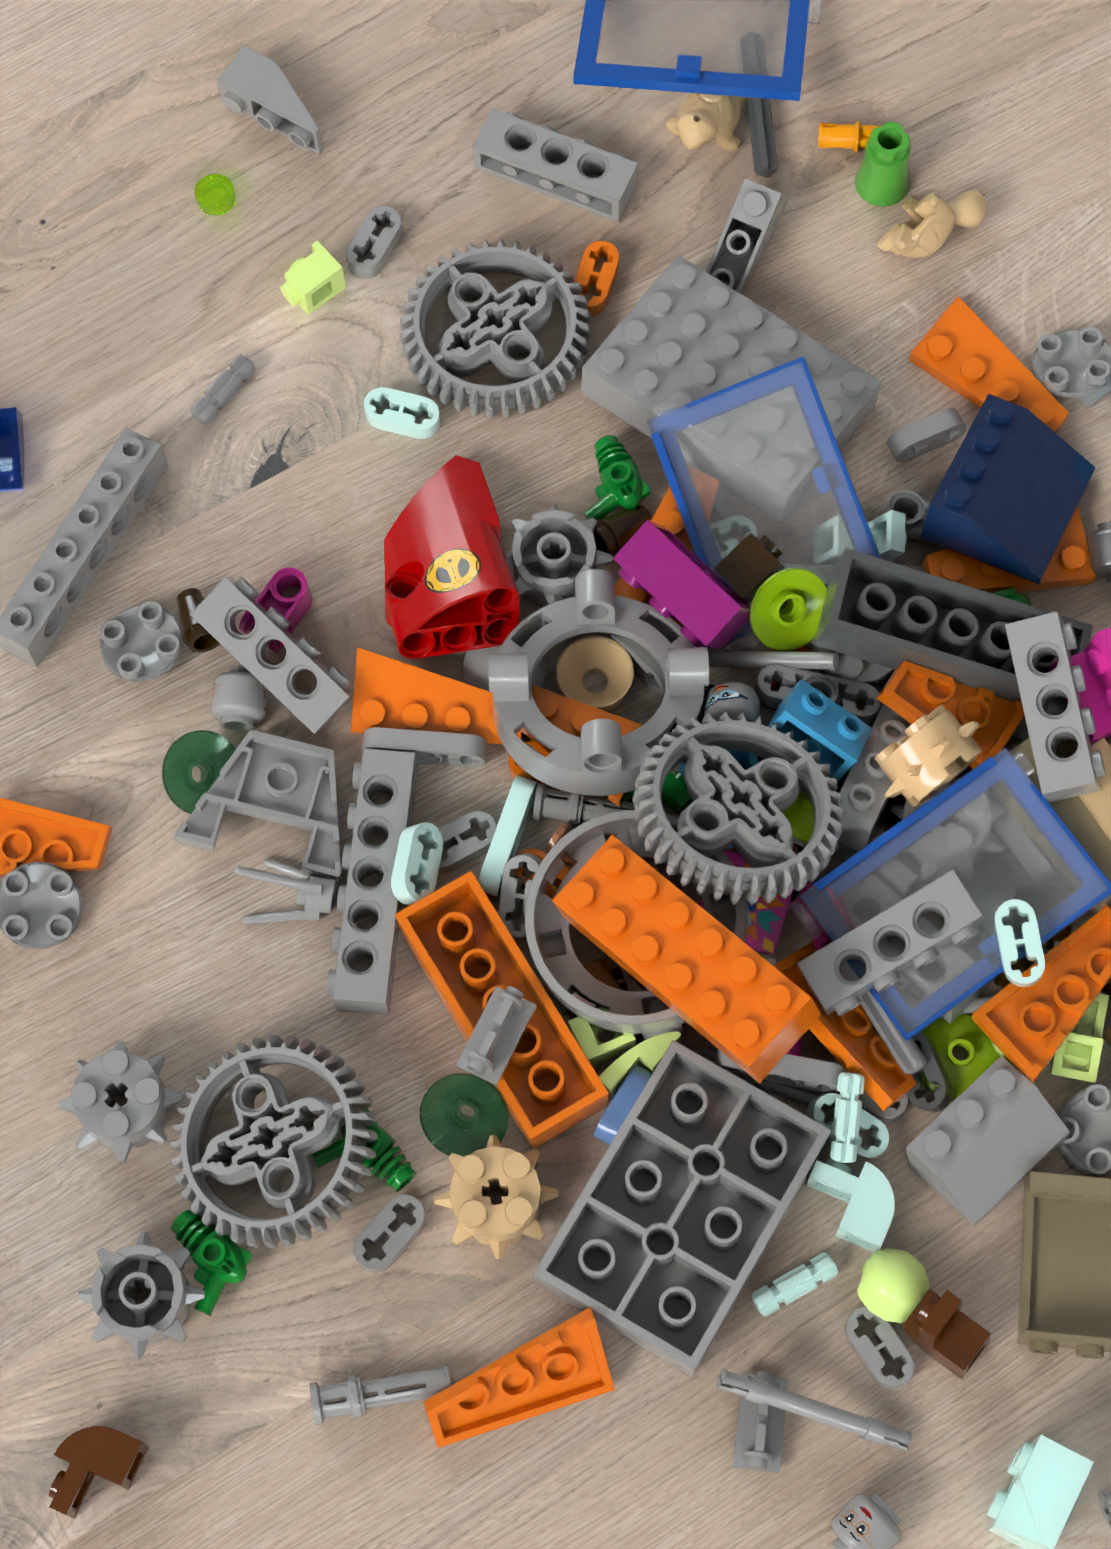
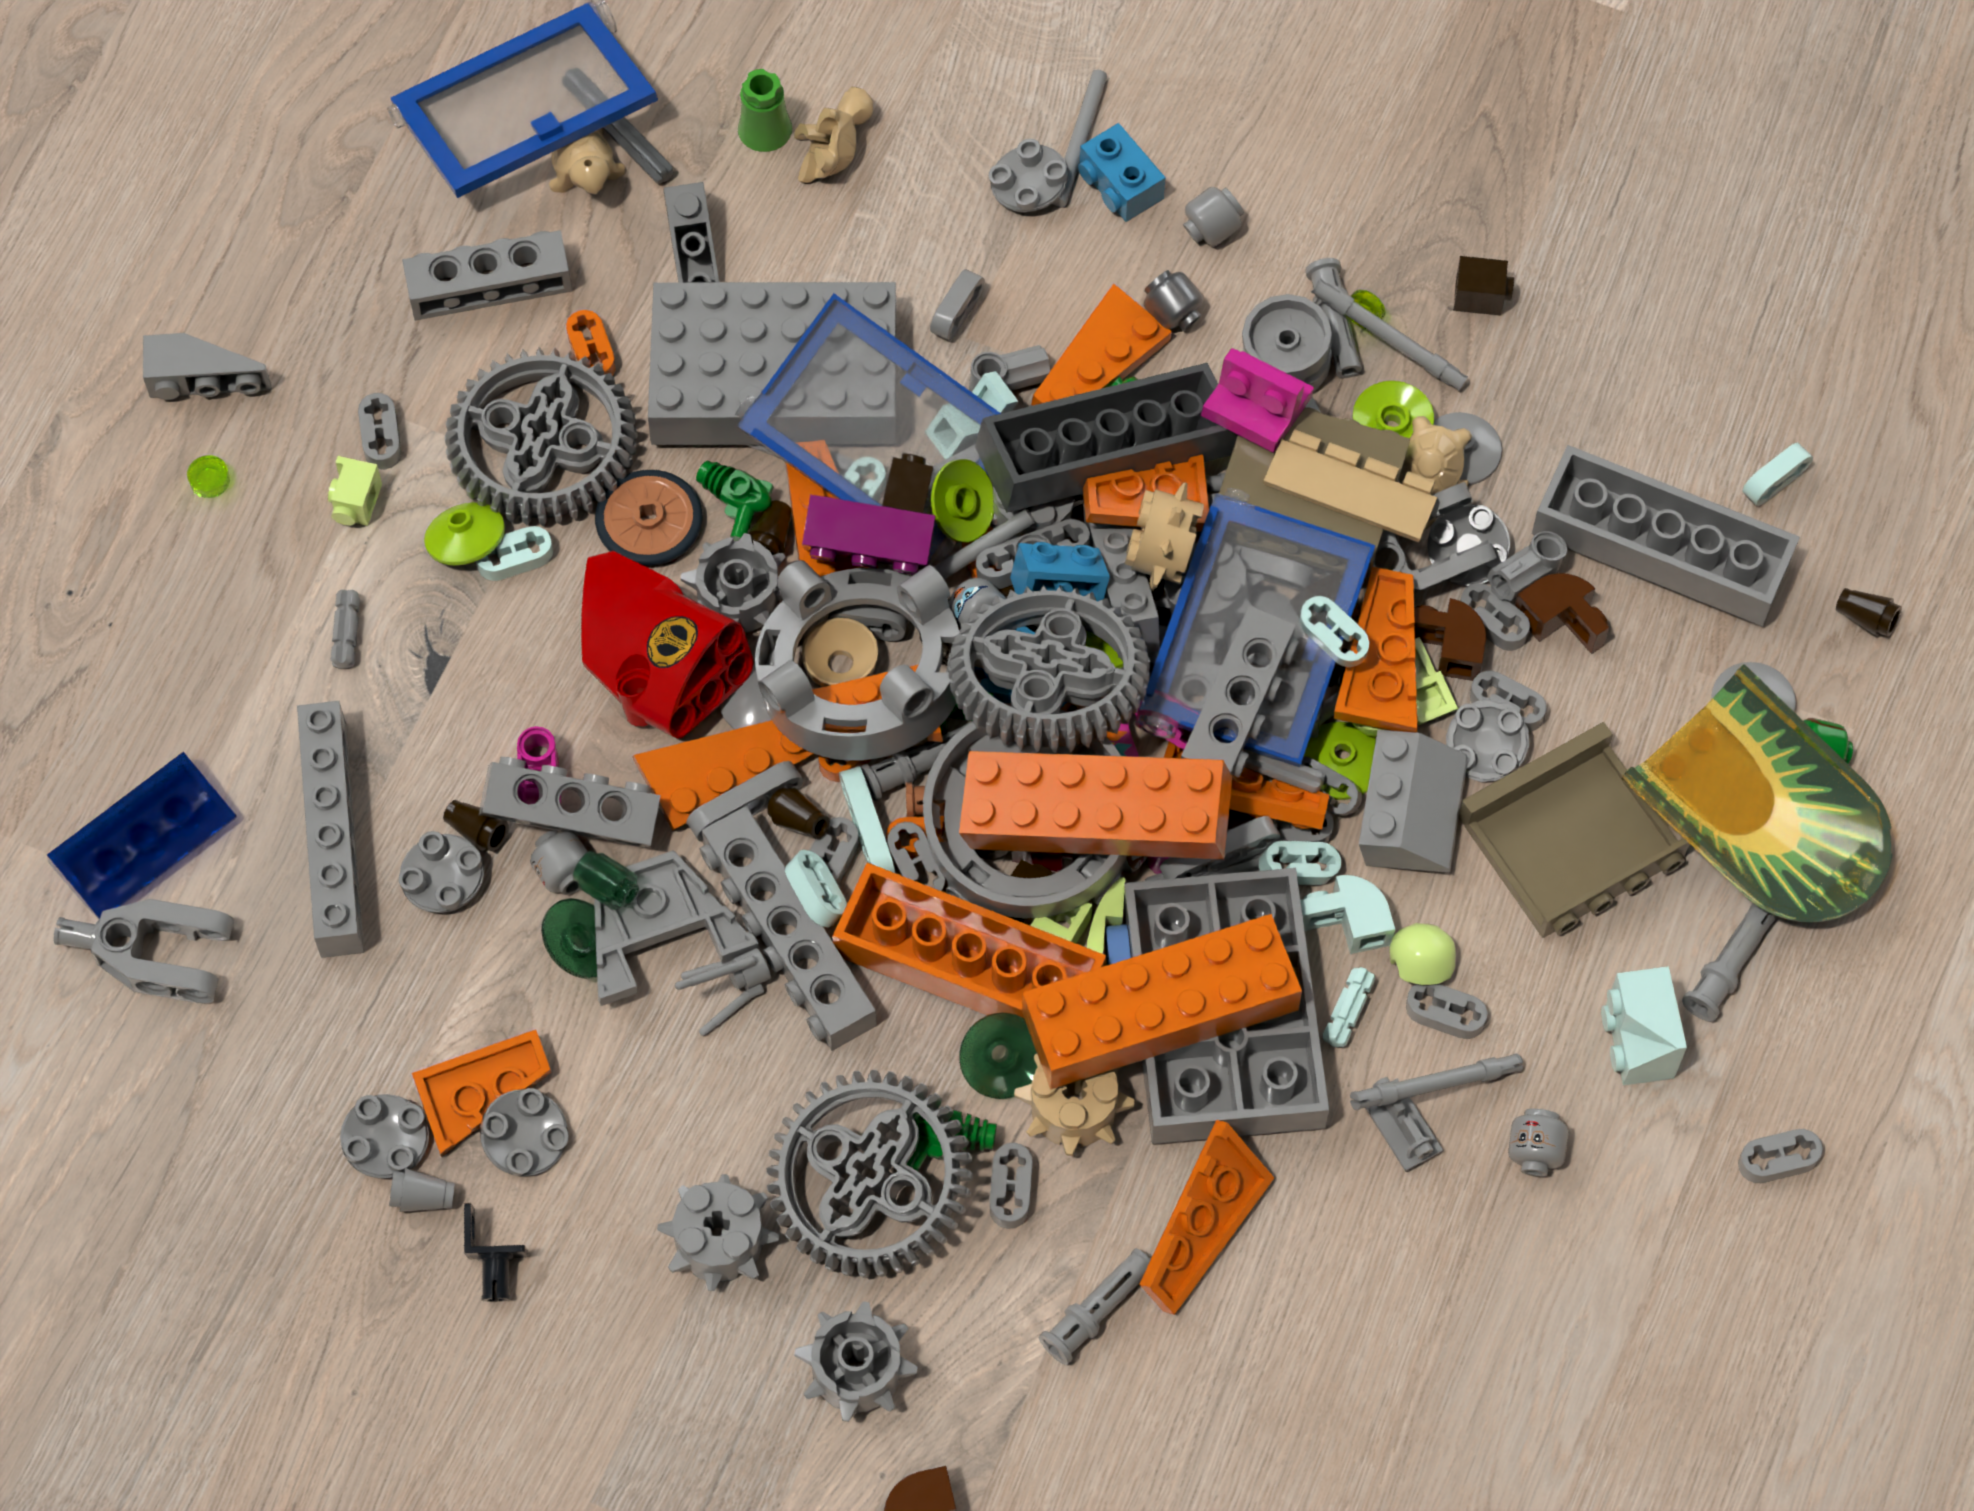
camera: 40 degrees left, 5 degrees down
(216, 1256) = (888, 1295): green piece -> none
(252, 739) = (606, 880): none -> clear green brick
(373, 371) = (464, 534): none -> lime dish
(456, 786) = (797, 813): none -> dark brown cone
(496, 1034) = (987, 967): light grey hinge -> none
(529, 478) = (649, 540): none -> nougat wheel
(616, 1169) = (1161, 1001): none -> orange brick
(844, 135) = (713, 106): light orange axle -> none
(847, 1117) = (1299, 851): light aqua axle -> none
(946, 1332) = (1488, 961): reddish brown brick -> none
(976, 363) = (961, 227): orange wing -> none
(1008, 491) = (1058, 306): dark blue slope -> none
(1029, 643) = (1271, 487): light grey brick -> none

